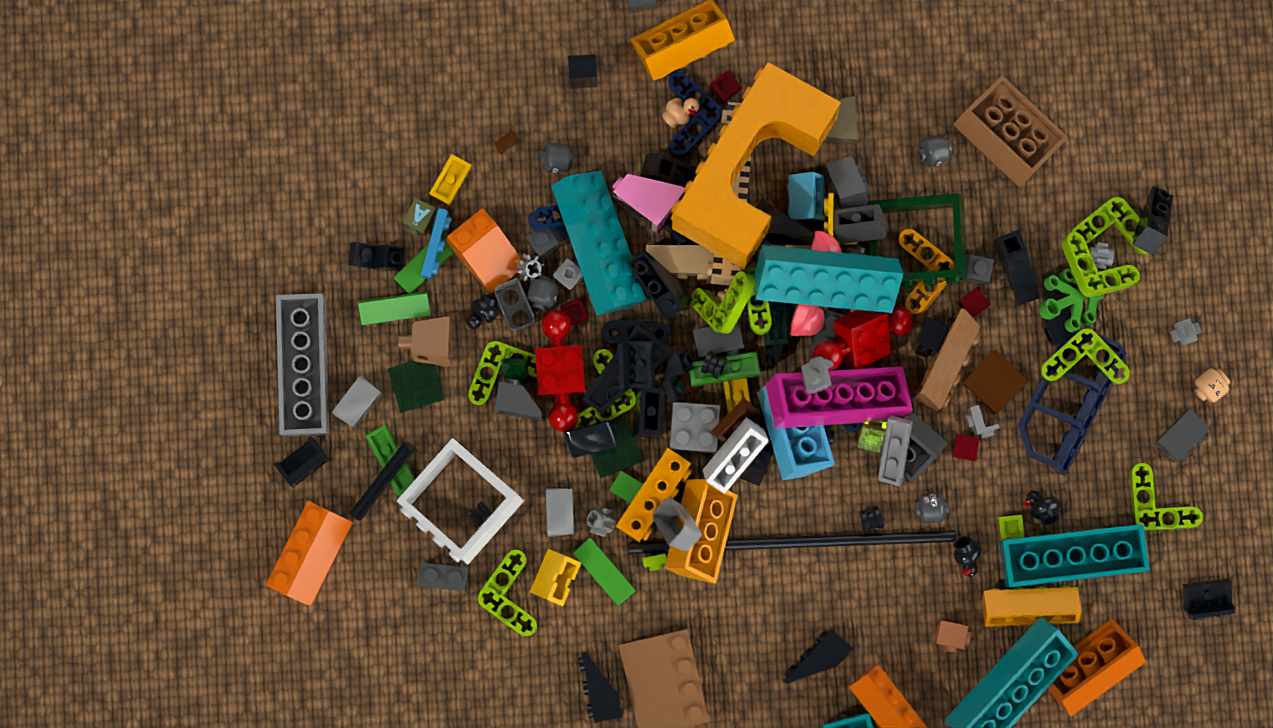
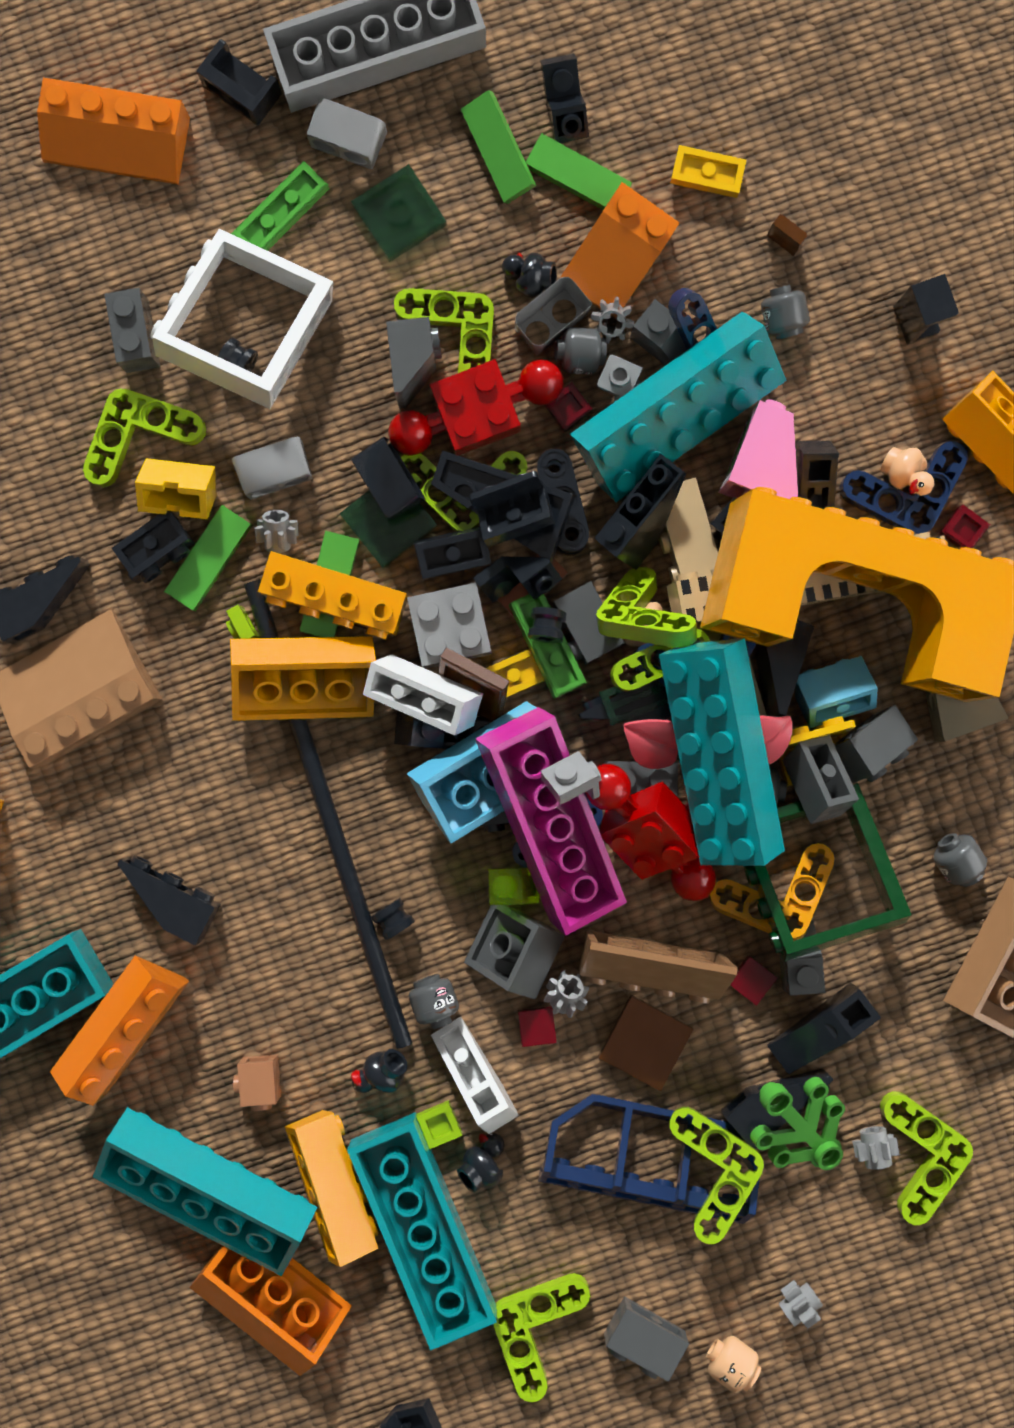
camera: 75 degrees right, 5 degrees up
(383, 480) = (247, 204): black axle -> none
(419, 218) = (639, 143): olive brick -> none
(429, 341) = (464, 210): medium nougat torso -> none
(436, 244) = (607, 174): dark azure plate -> none
(515, 369) = (457, 344): dark green plate -> none
(587, 604) = (153, 547): none -> black bracket
(668, 513) = (288, 656): light grey piece -> none
(895, 450) = (500, 926): light grey tile -> none
(929, 338) = (681, 931): black brick -> none
(950, 422) = (561, 1002): none -> light grey gear
(975, 420) = (580, 1029): light grey bracket -> none
(985, 496) = (474, 1076): none -> white slope
(1091, 274) = (845, 1143): lime beam -> none
(1154, 221) = (952, 1214): black slope -> none

